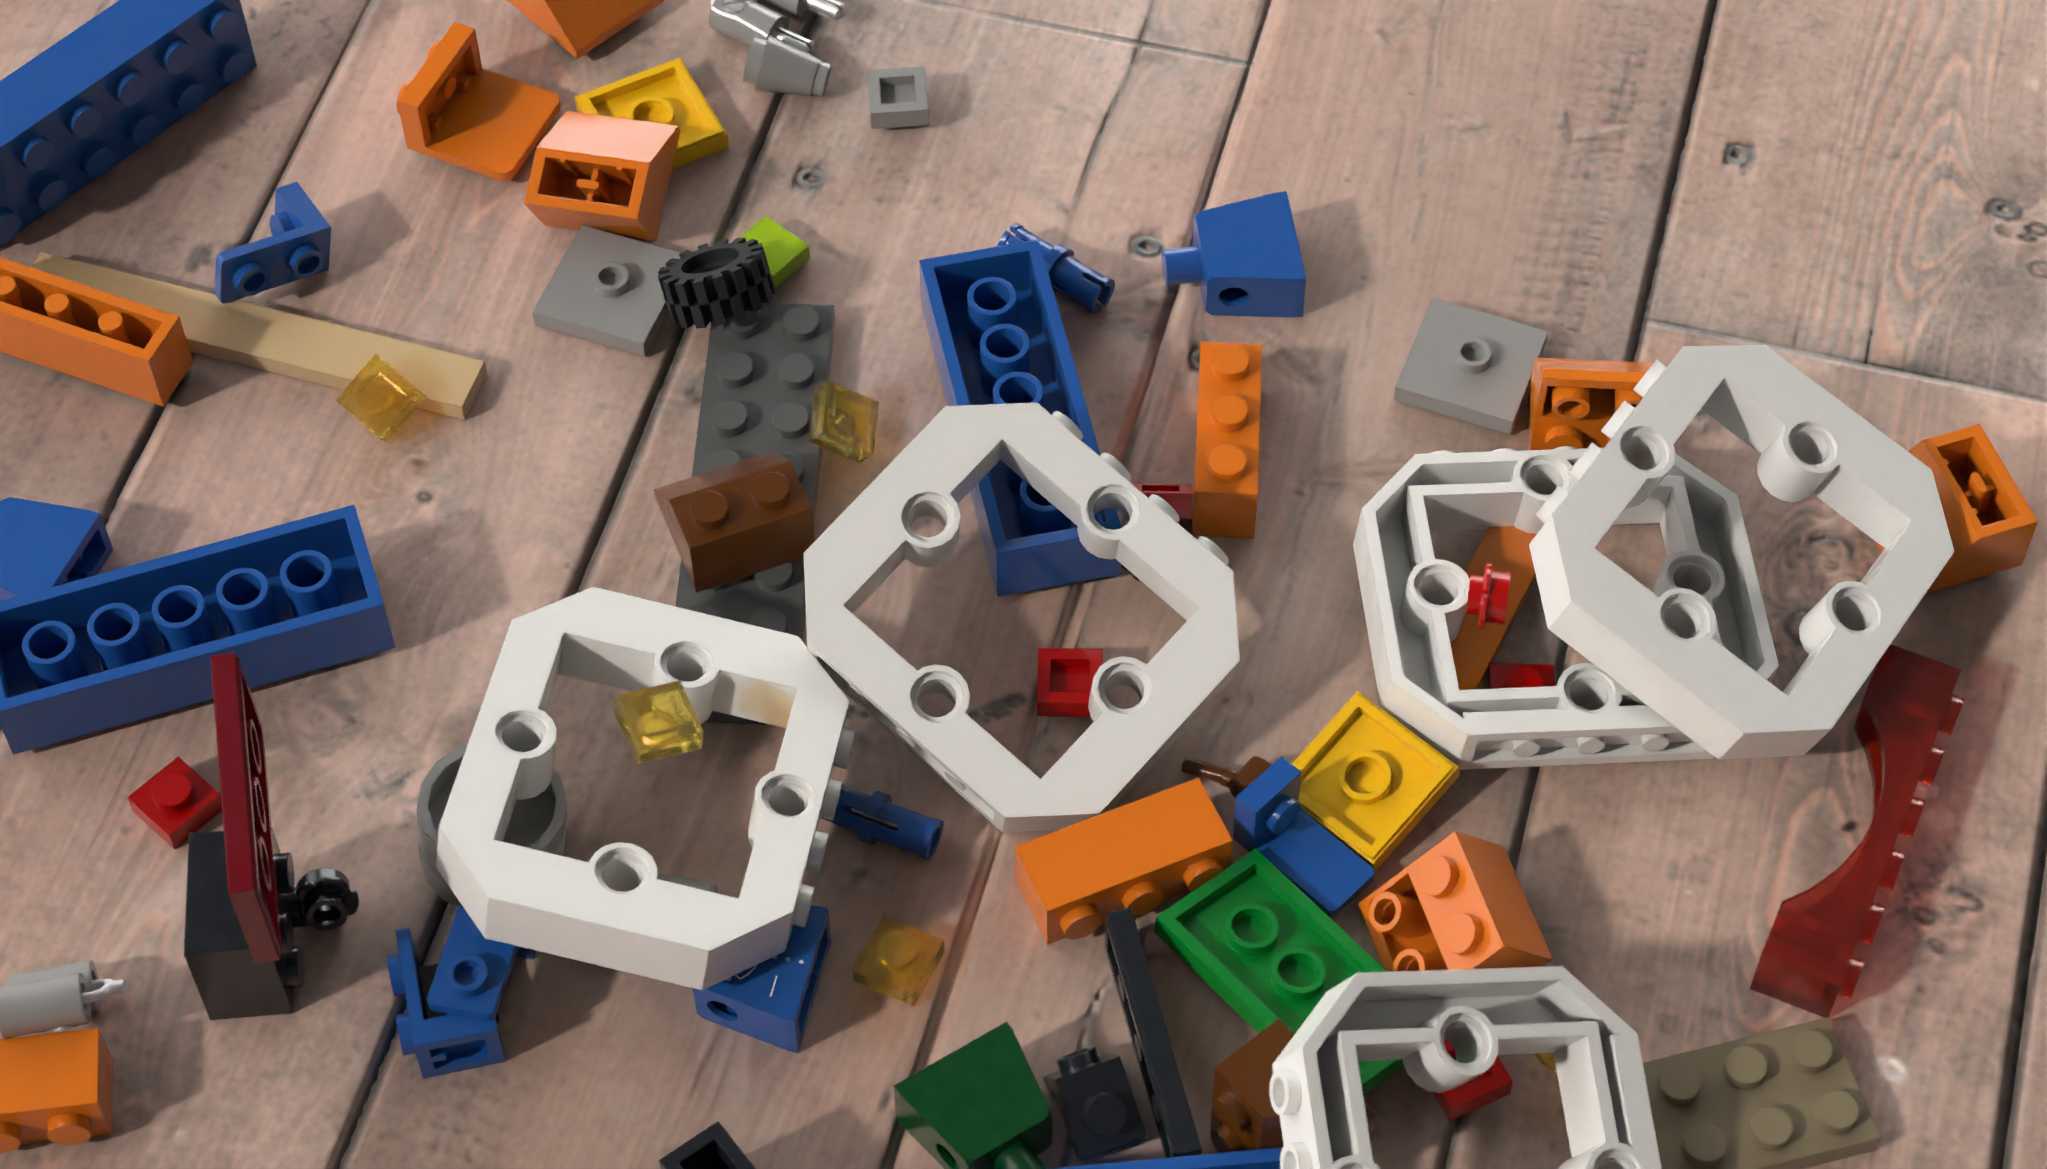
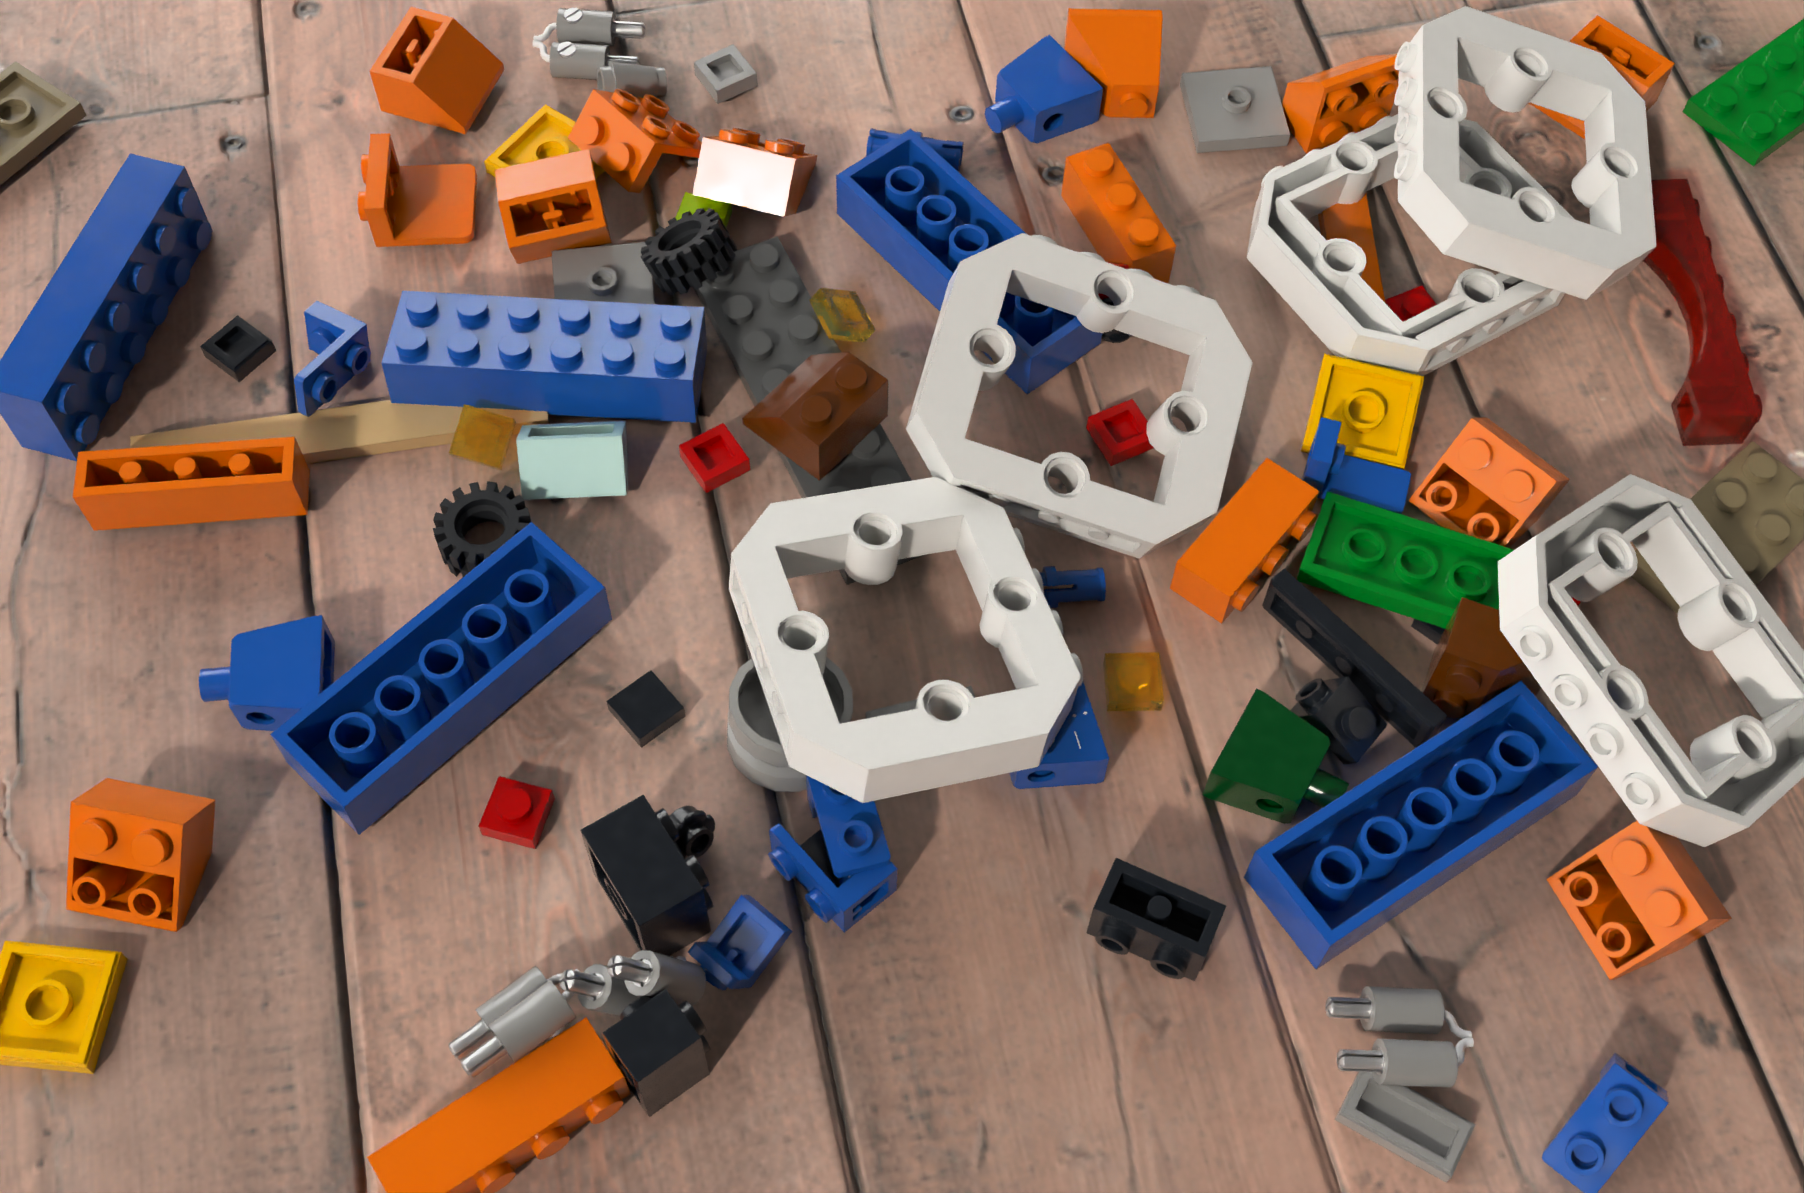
camera: 30 degrees left, 5 degrees up
(144, 1095) = (659, 1049): none -> black brick
(163, 1019) = (625, 979): none -> light grey piece
(203, 202) = (238, 348): none -> black tile
(246, 809) = (636, 786): dark red tile -> none
(300, 1037) = (740, 945): none -> blue bracket
(317, 472) = (469, 511): none -> black tyre
(369, 755) = (646, 708): none -> black tile
(458, 461) = (573, 460): none -> light aqua brick
(500, 339) = (547, 355): none -> blue brick
(606, 521) = (714, 457): none -> red plate
(658, 722) = (898, 580): clear yellow plate -> none
(740, 119) = (630, 135): none -> orange bracket
(852, 221) = (753, 173): none -> slope
(1227, 777) = (1284, 452): reddish brown hand -> none
(1349, 251) = (1121, 54): none -> orange slope
(1489, 596) = (1387, 248): red plate -> none

